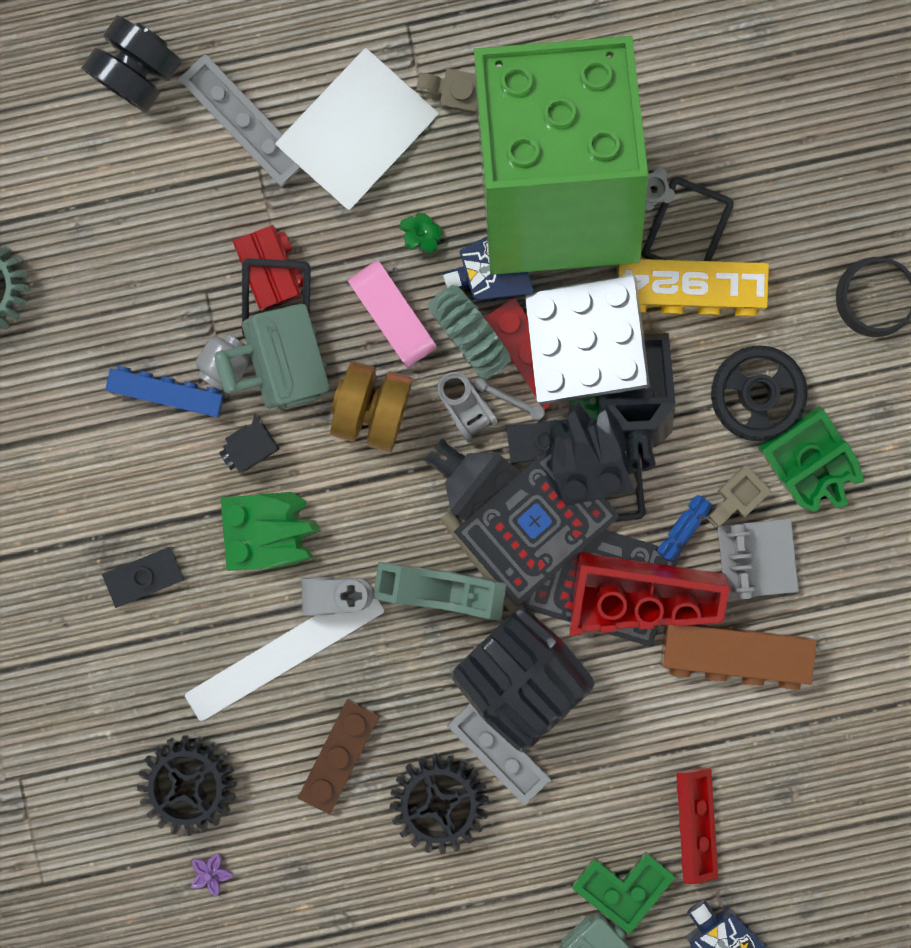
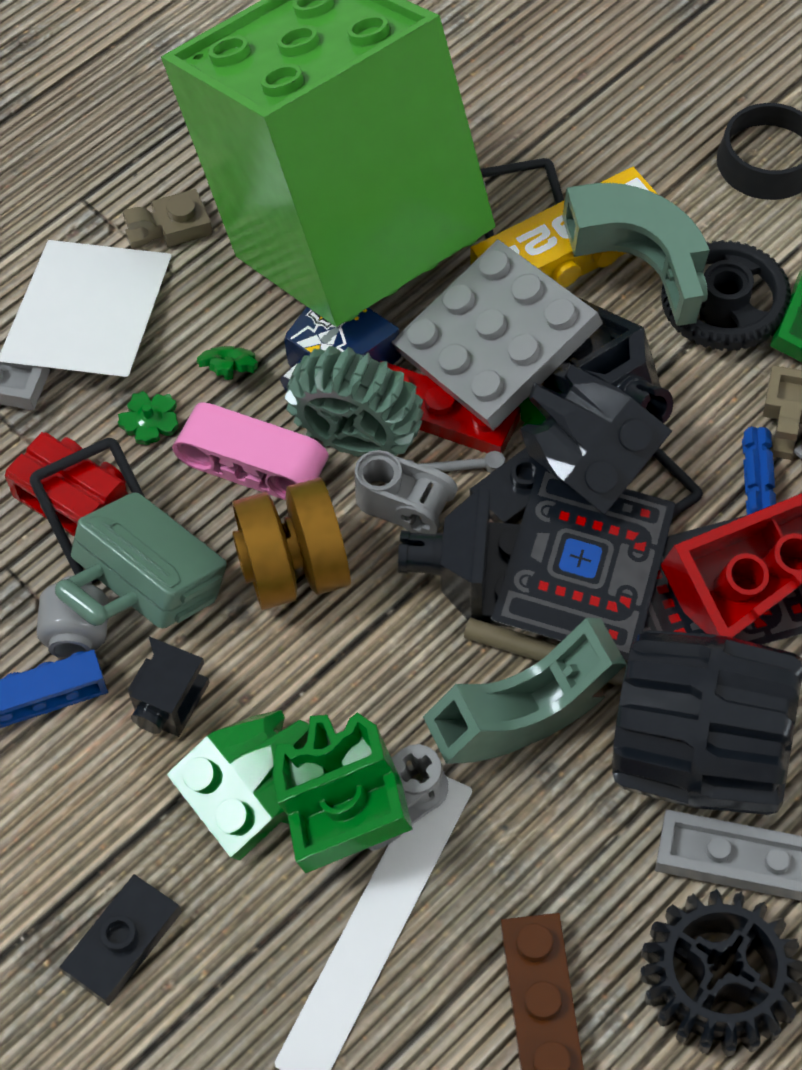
camera: 30 degrees left, 30 degrees down
(299, 584) = (339, 791): none -> green plate
(350, 239) = (149, 418): none -> green plant
(736, 332) = (647, 226): none -> sand green arch

